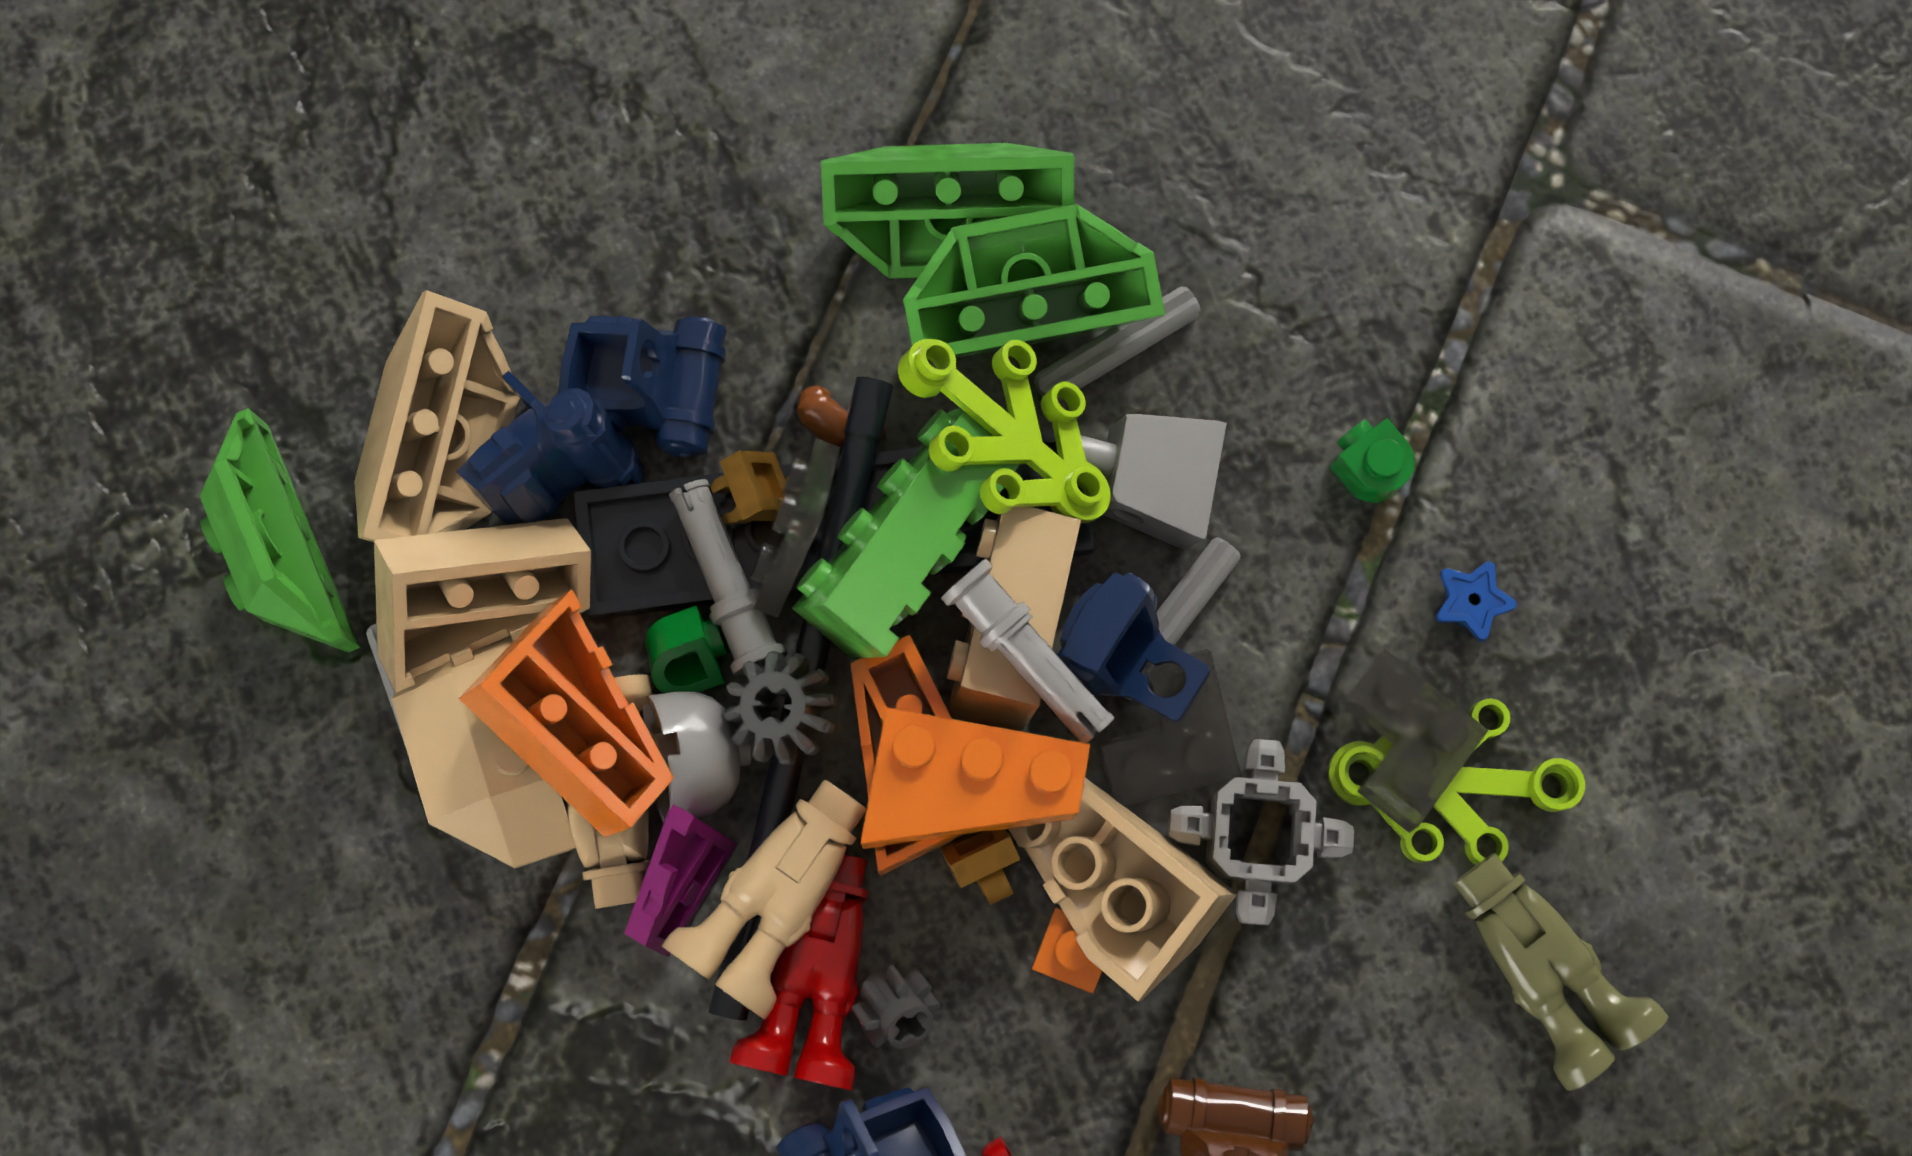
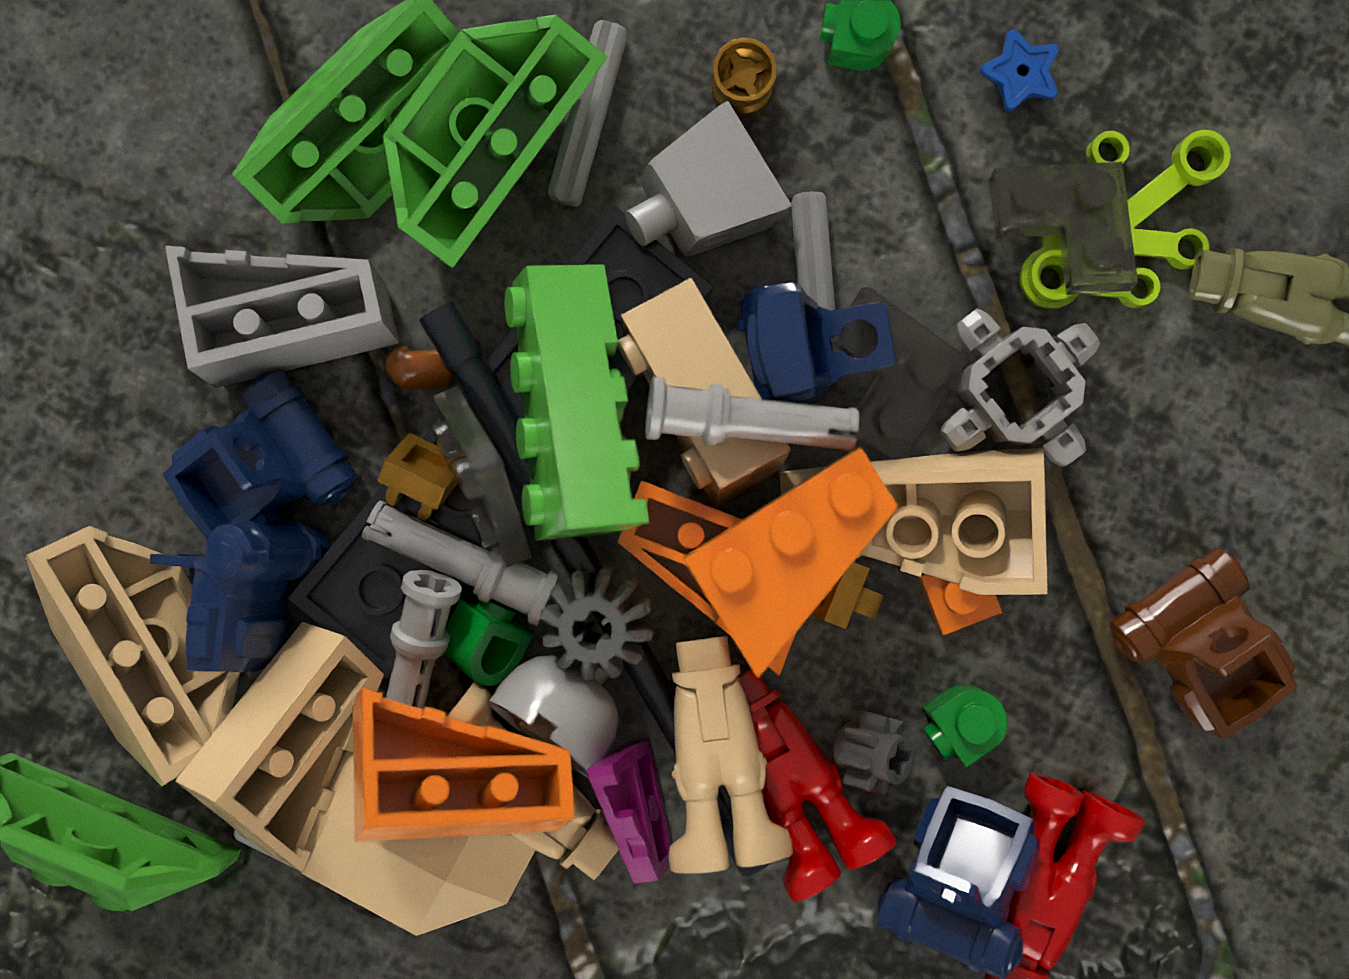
camera: 40 degrees left, 10 degrees up
(646, 600) = (420, 634): none -> light grey pin
(760, 283) = (275, 313): none -> light grey wedge
(986, 1052) = (965, 723): none -> green plate
(1014, 432) = (580, 254): lime plant -> none
(1259, 407) = (741, 65): none -> pearl gold wheel

